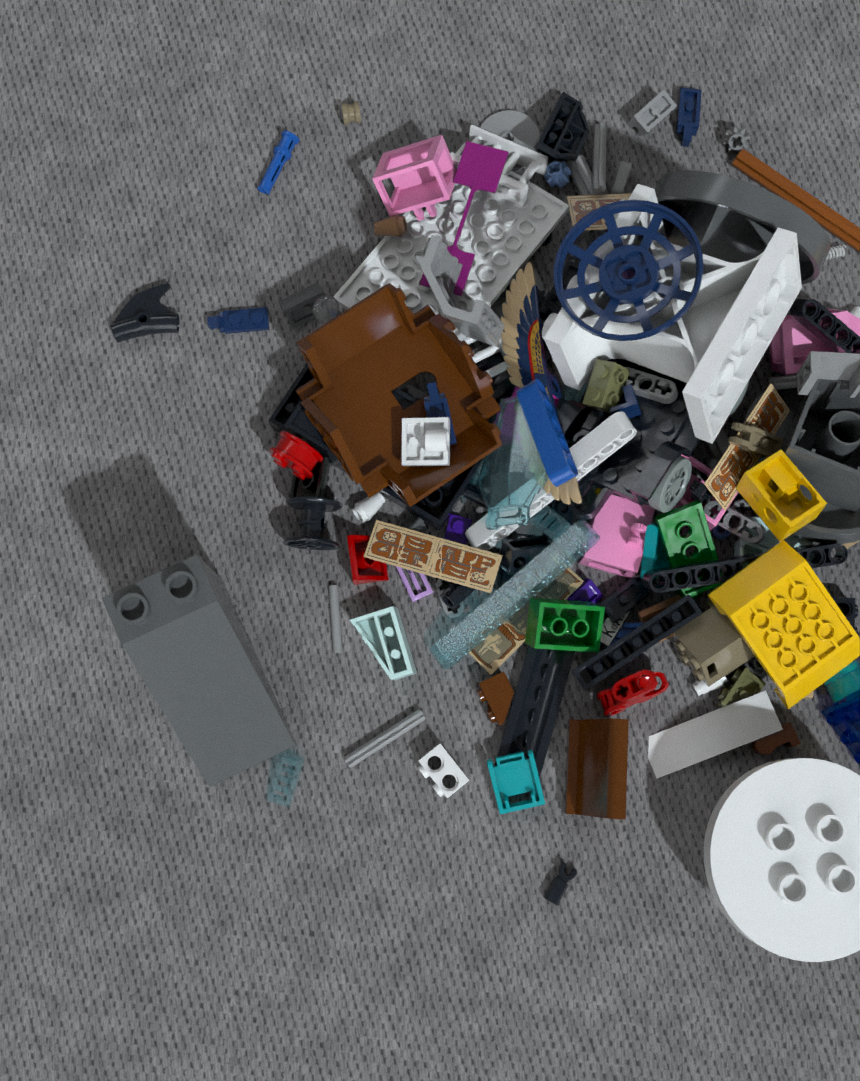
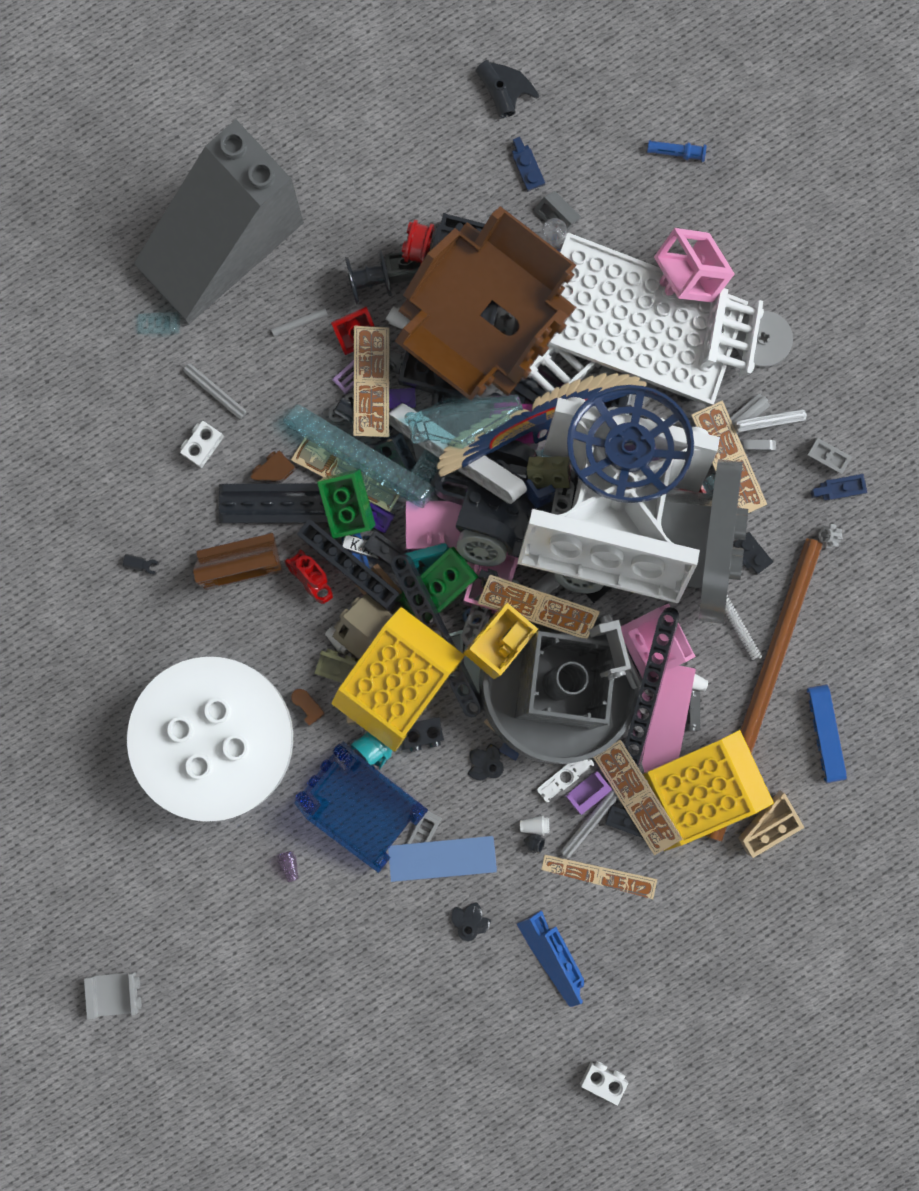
camera: 75 degrees right, 5 degrees up
(351, 112) = (743, 197): dark tan wheel -> none
(388, 641) = (291, 368): light aqua wedge -> none
(391, 226) = (646, 262): medium nougat cone -> none
(426, 441) = (454, 338): white plate -> none
(437, 406) = (480, 344): dark blue hinge -> none
(442, 274) = (593, 308): light grey panel -> none
(479, 170) = (714, 317): magenta hinge -> none
(515, 776) = (214, 502): teal container -> none
(547, 433) = (492, 433): blue beam -> none
(557, 174) = (744, 389): light blue gear -> none
(564, 130) = (783, 382): black wedge -> none
(712, 734) = (296, 653): white sticker -> none
(756, 440) = (543, 610): dark tan hinge -> none

